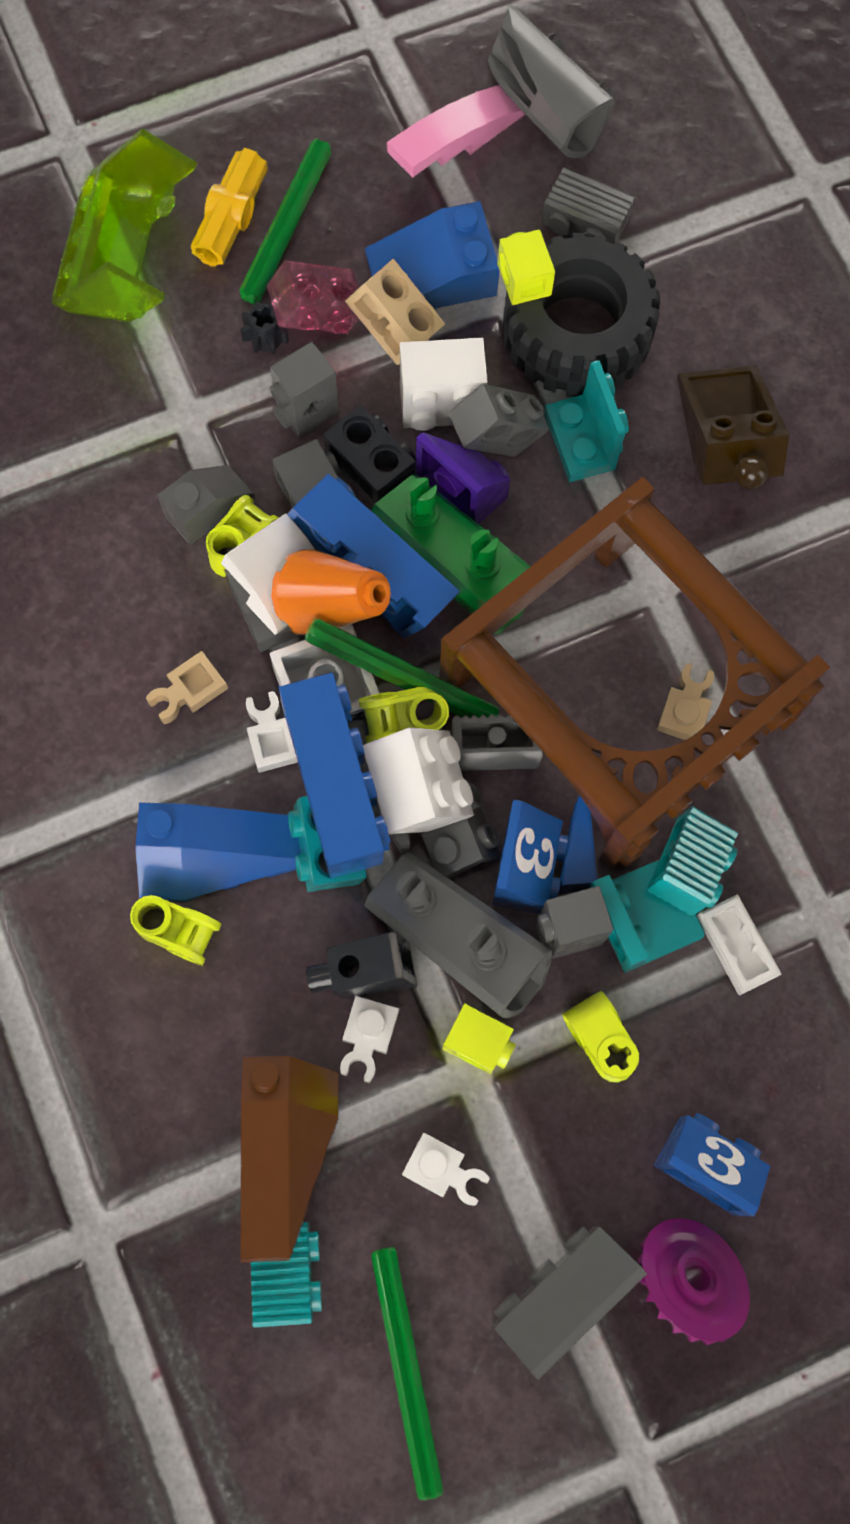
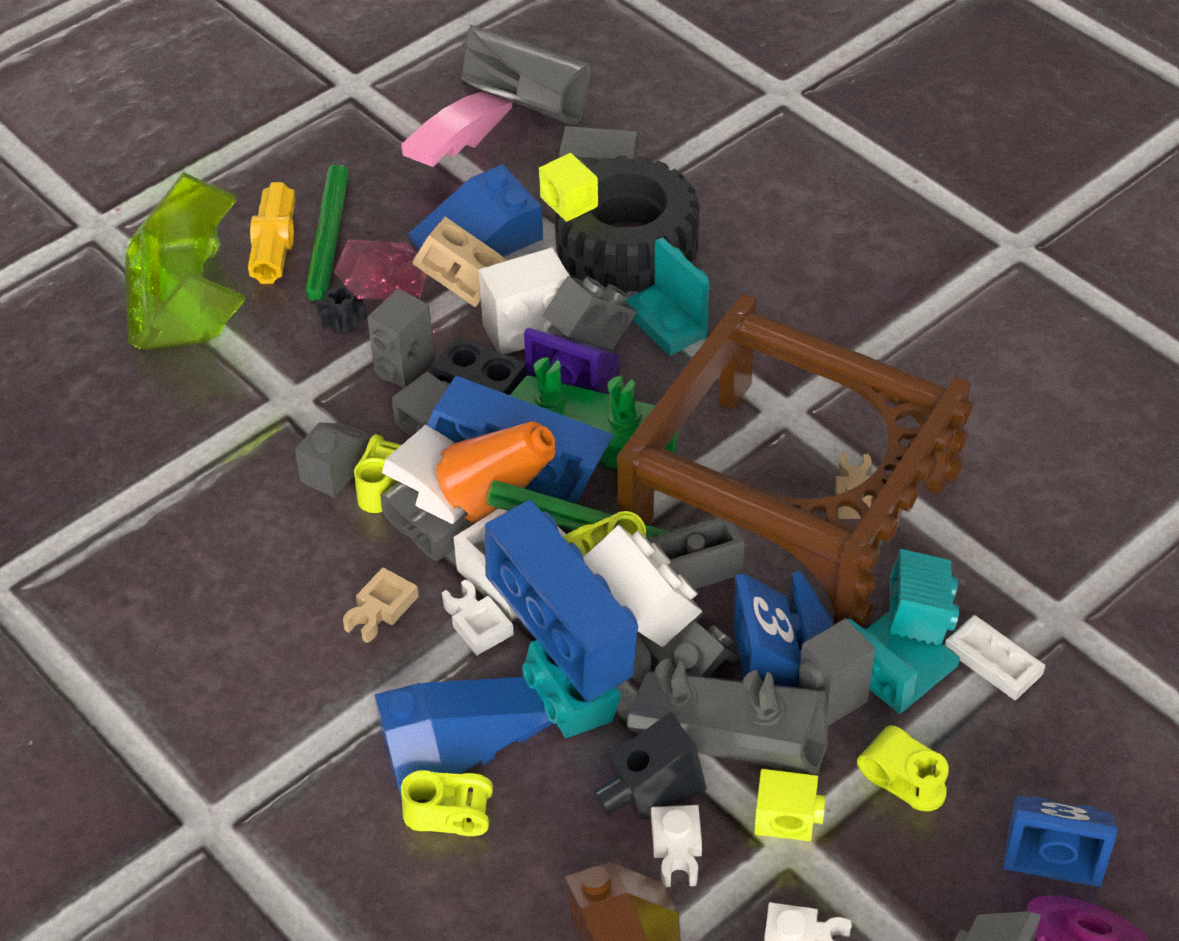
camera: 15 degrees left, 25 degrees down
(733, 426) = (799, 272): dark brown slope -> none

